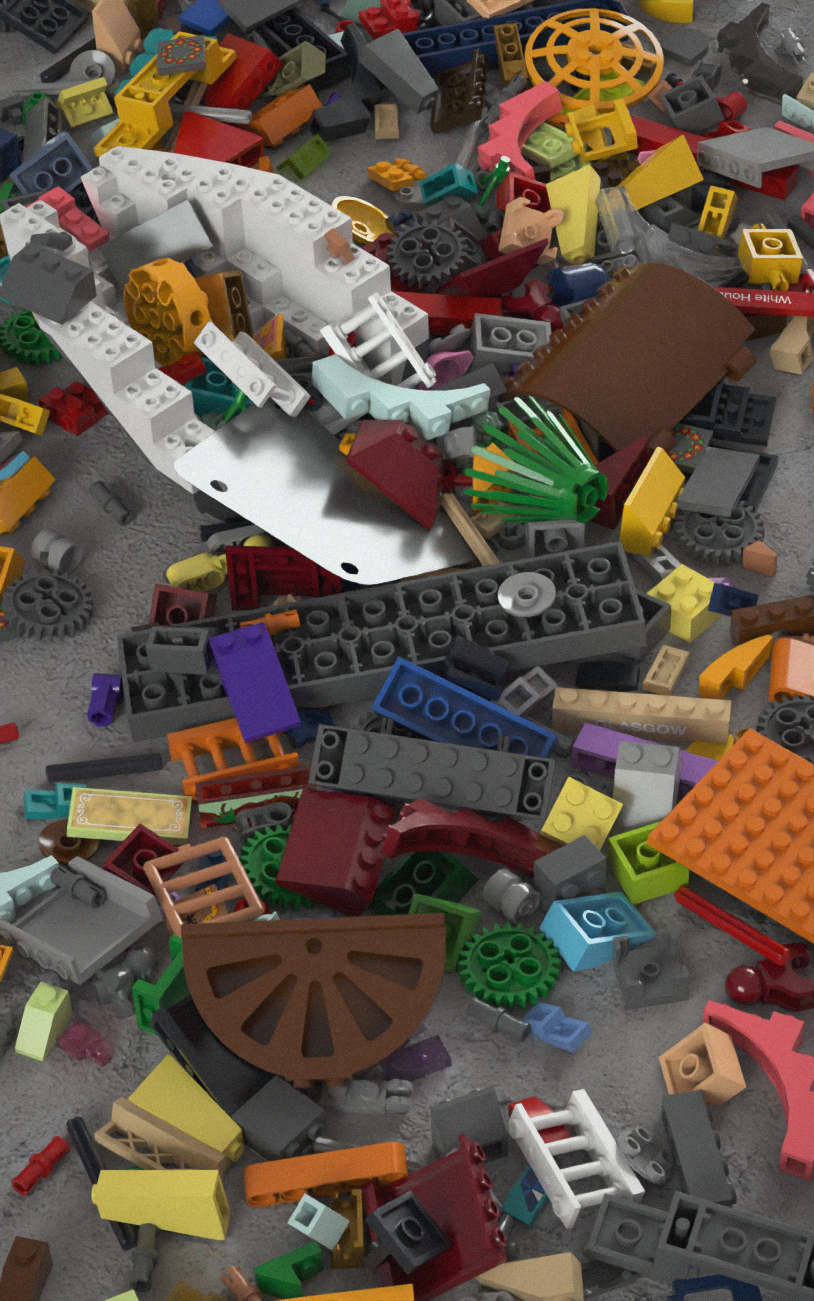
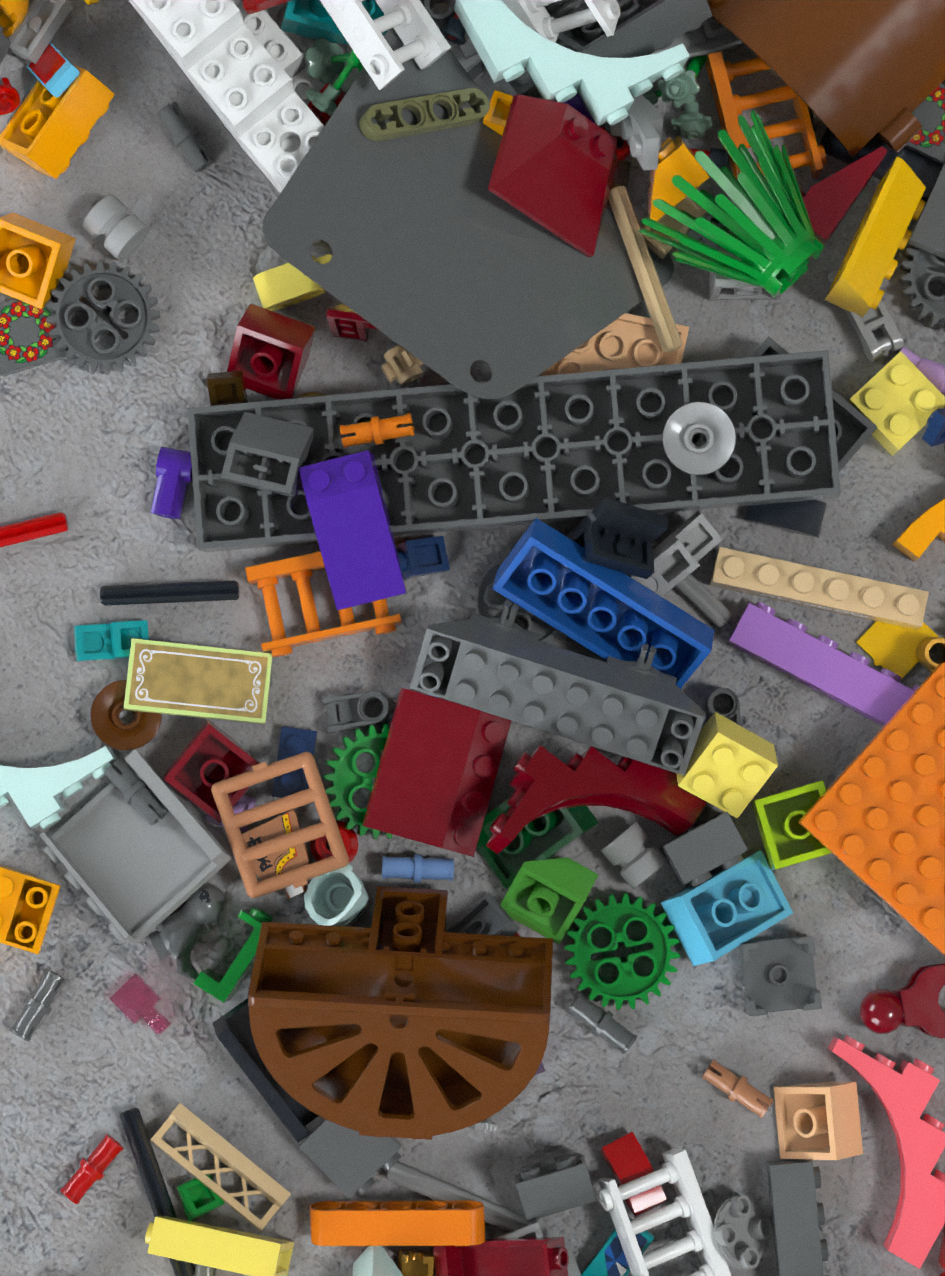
camera: 10 degrees right, 40 degrees up
(43, 1021) = (95, 976): yellowish green slope -> none
(184, 1104) = (249, 1124): light yellow slope -> none
(224, 798) = (346, 674): clear red brick -> none
(293, 434) = (423, 110): none -> olive beam
(555, 1029) = (664, 1037): medium blue slope -> none
(626, 1056) = (737, 1088): none -> nougat pin
(645, 784) = (809, 721): light grey slope -> none
(666, 670) = (857, 509): tan plate -> none
(732, 925) = (880, 930): red axle -> none

